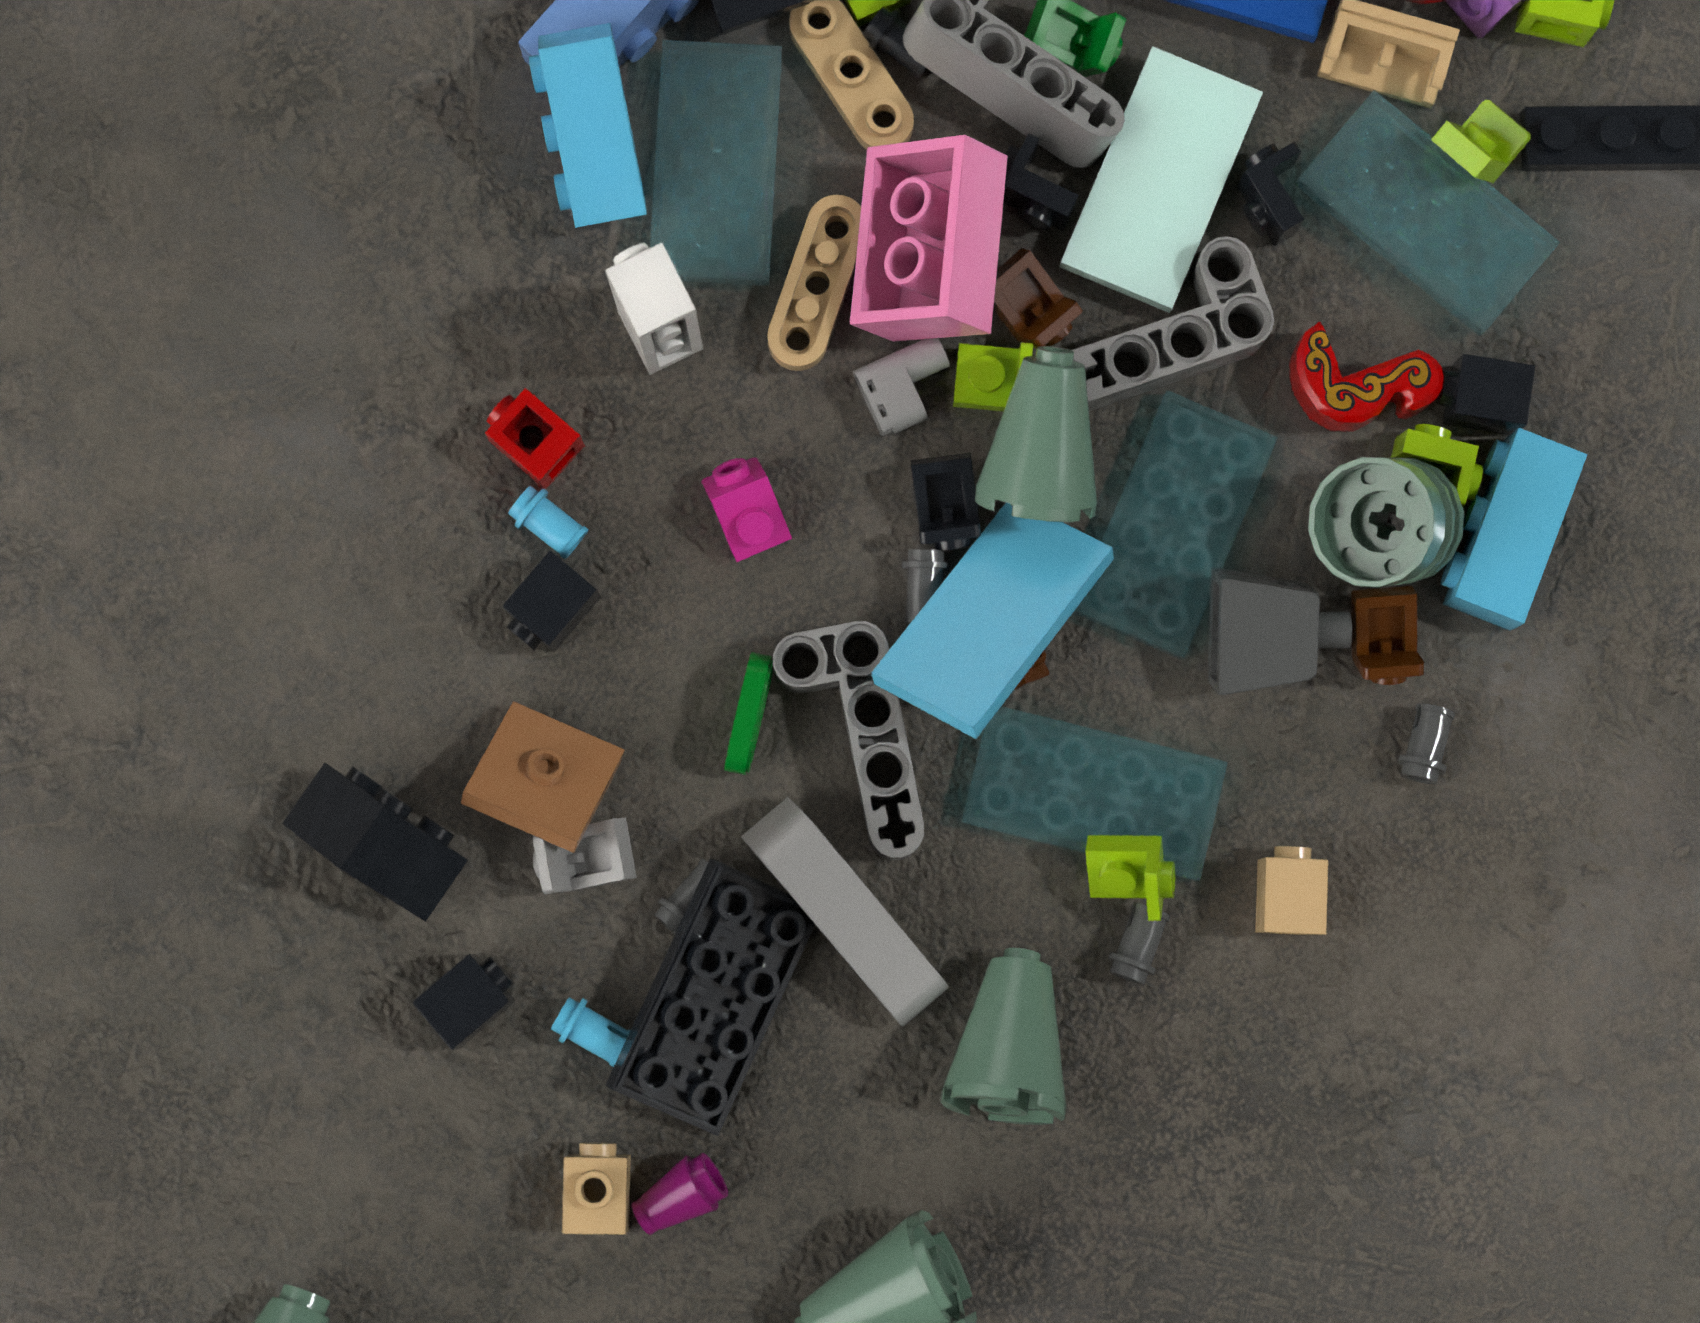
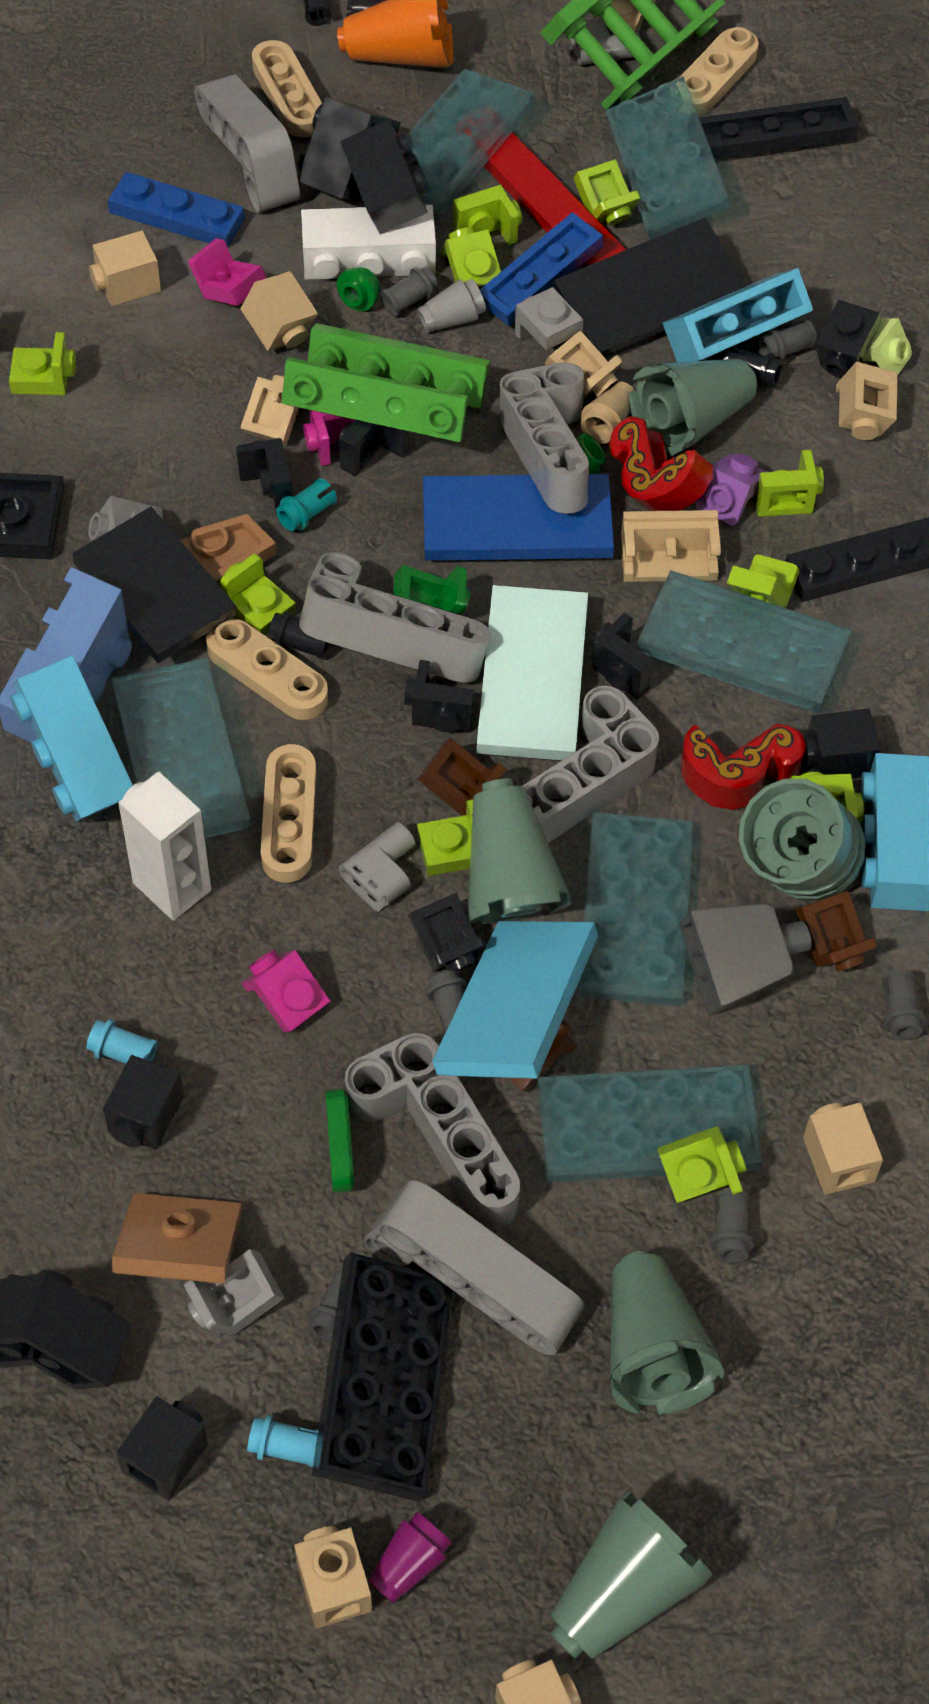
camera: 15 degrees left, 25 degrees down
(526, 412) = (88, 968): red brick -> none
(929, 239) = (368, 748): bright pink brick -> none

